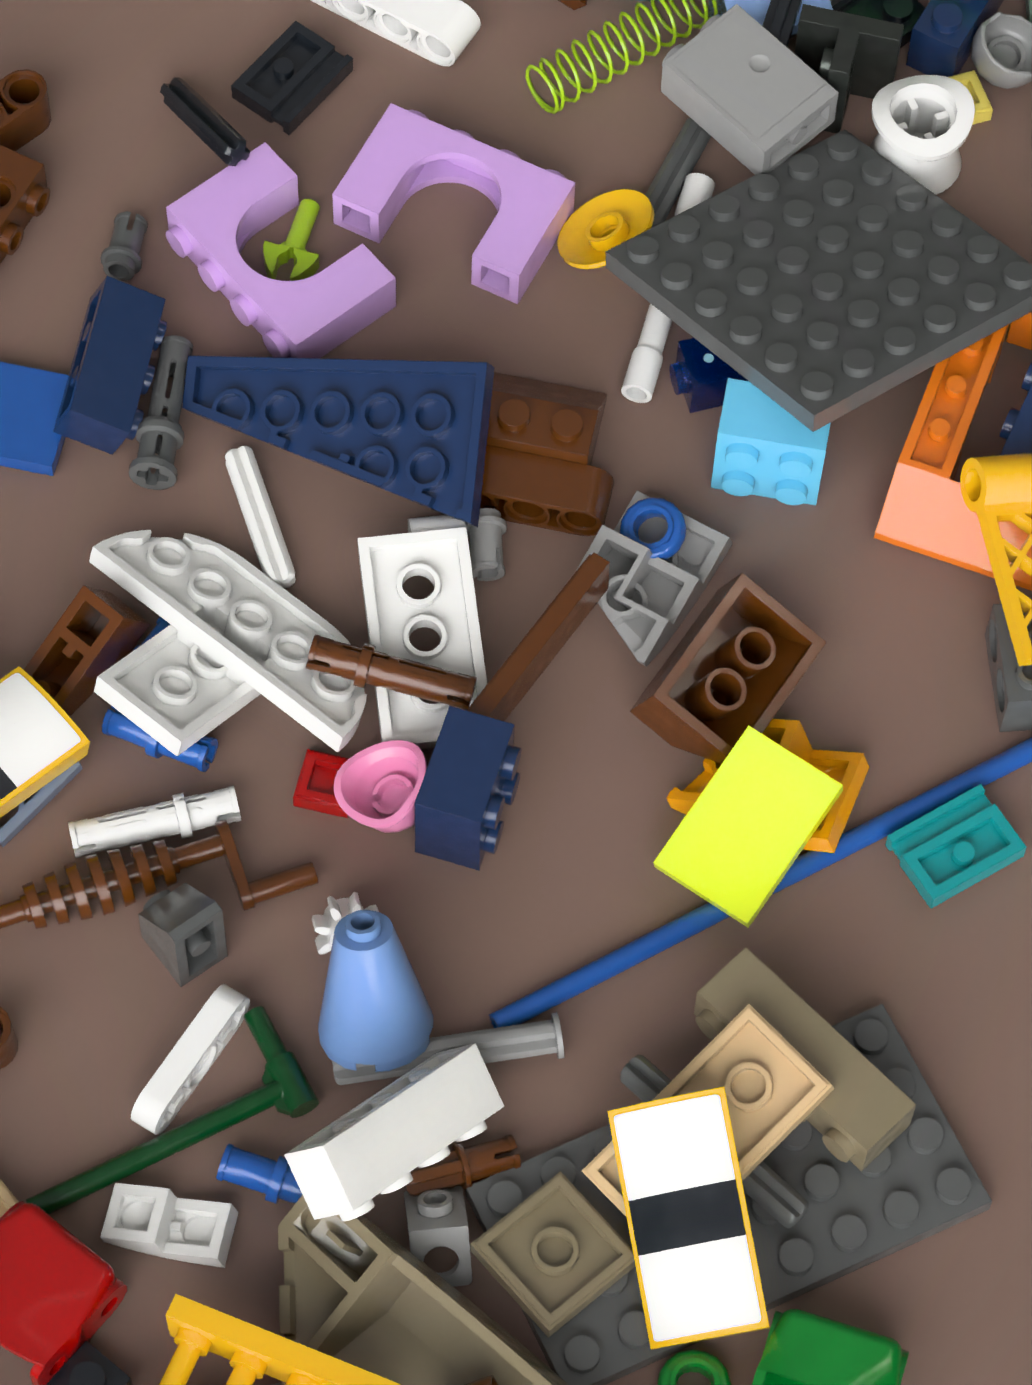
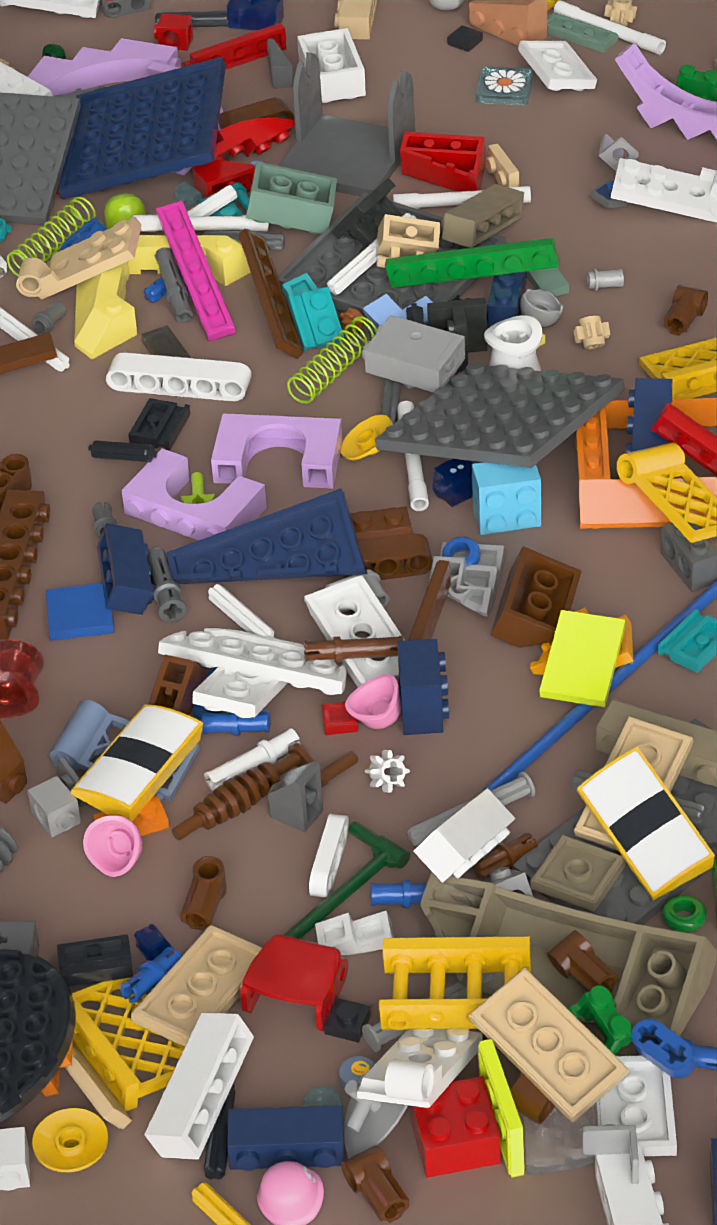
camera: 15 degrees left, 20 degrees down
(372, 997) = (417, 783): medium blue cone -> none

